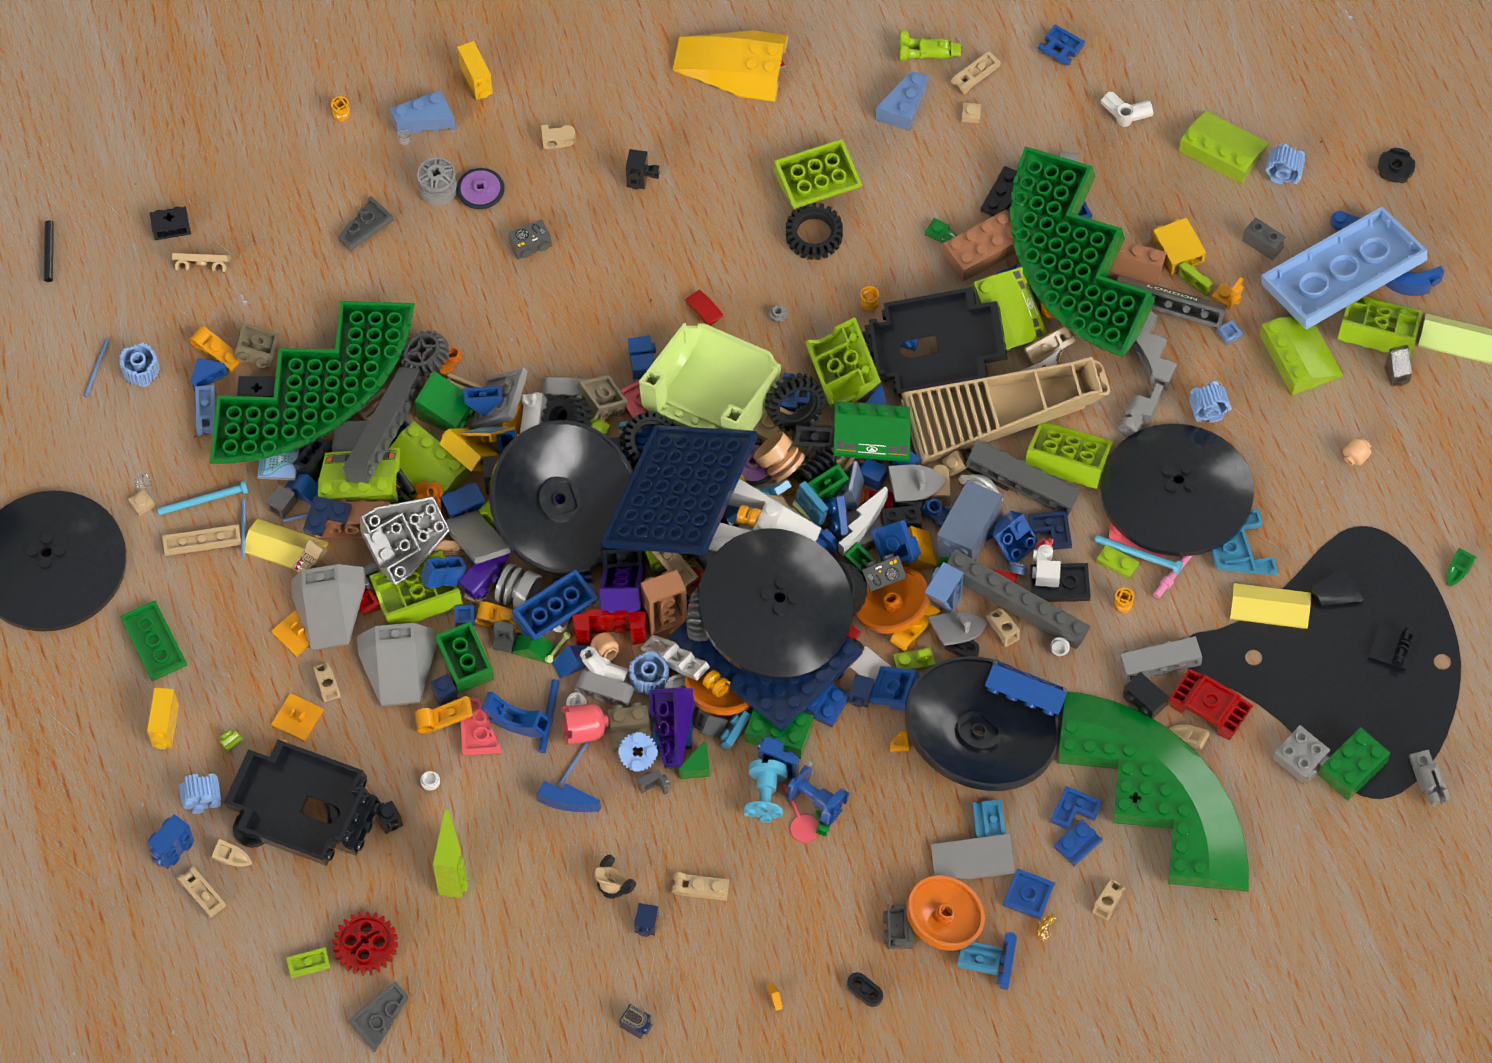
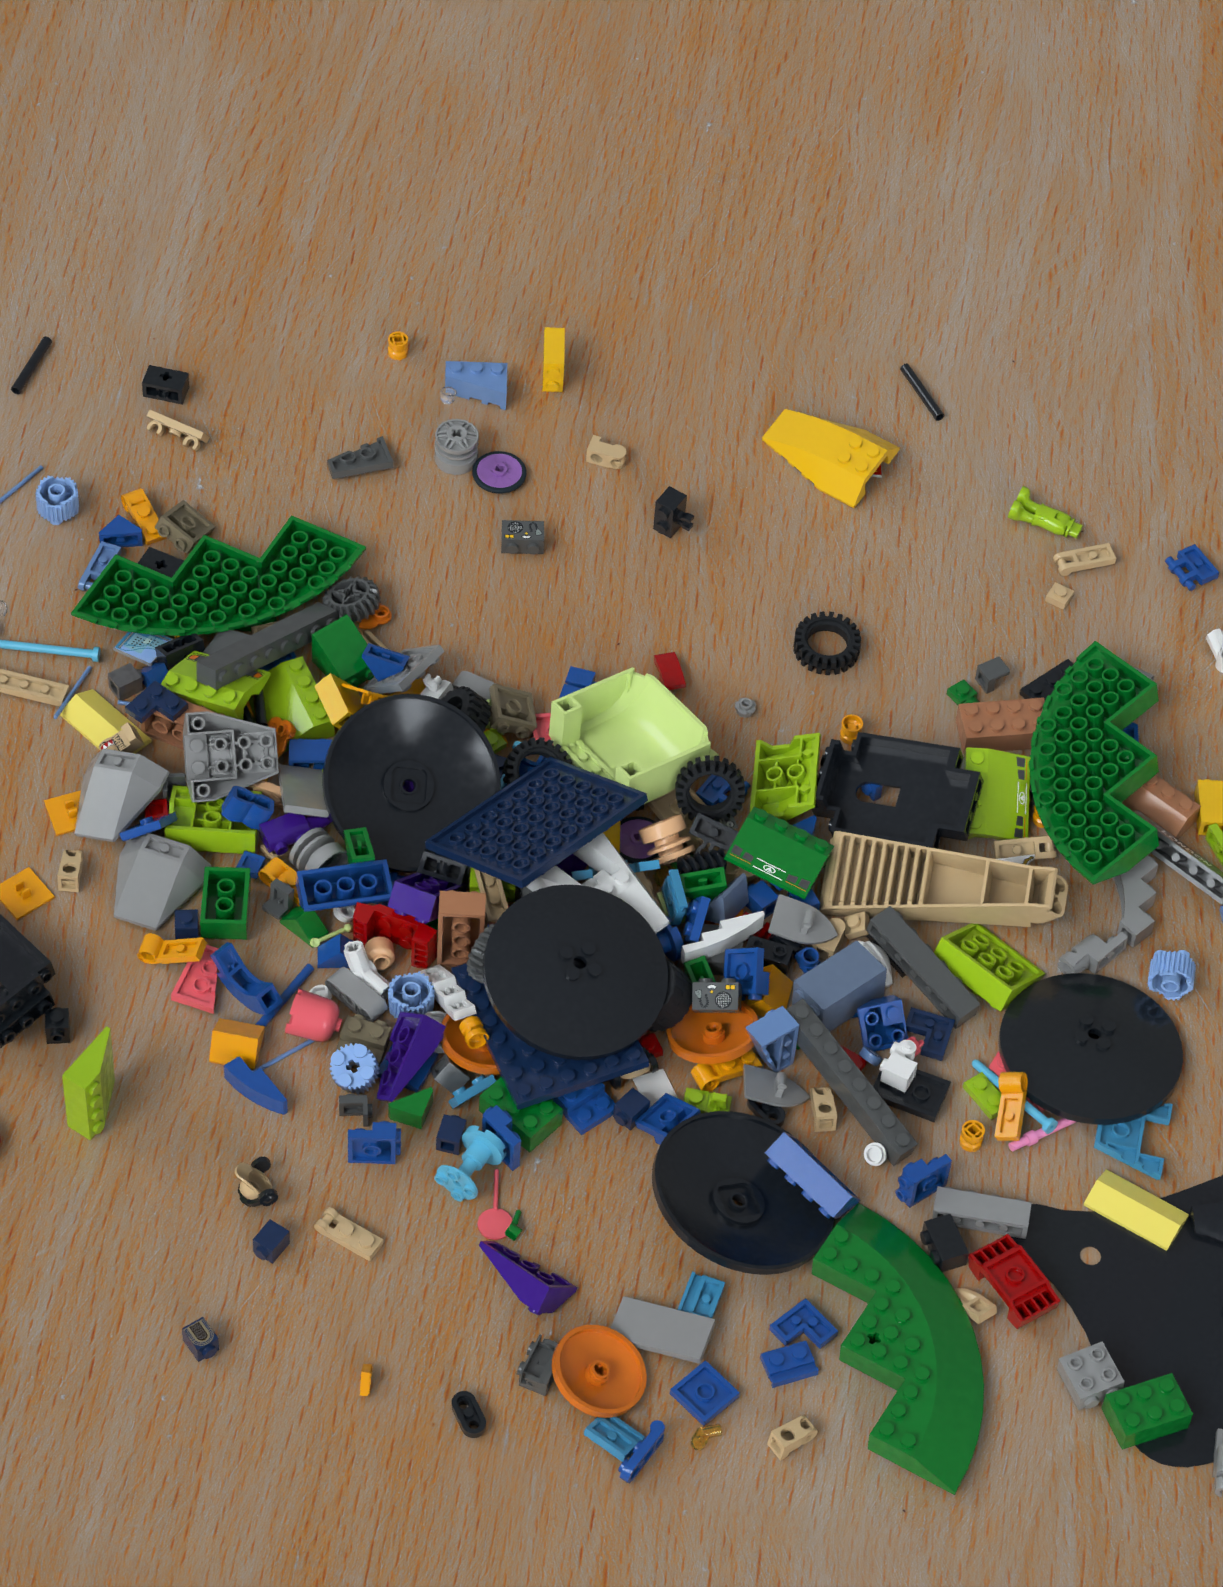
camera: 20 degrees right, 10 degrees down
(371, 620) = (148, 825): none -> blue plate
(430, 780) = (122, 1009): white plate -> none
(533, 769) = (236, 1039): none -> light orange slope
(549, 568) = (358, 846): none -> green slope
(690, 806) = (375, 1145): none -> blue plate
(736, 771) = (450, 1134): none -> dark blue brick
(748, 516) = (593, 874): light orange wheel -> none
(816, 174) = (858, 587): lime slope -> none
(823, 799) = (532, 1205): blue piece -> none
(862, 867) = (533, 1287): none -> dark purple wedge
(900, 742) = (643, 1180): light orange tile -> none
(904, 101) = (991, 556): medium blue wedge -> none
(952, 204) = (989, 672): none -> dark grey panel
(1106, 653) = (922, 1179): none -> blue plate
(1143, 563) = (1012, 1105): none -> light orange plate

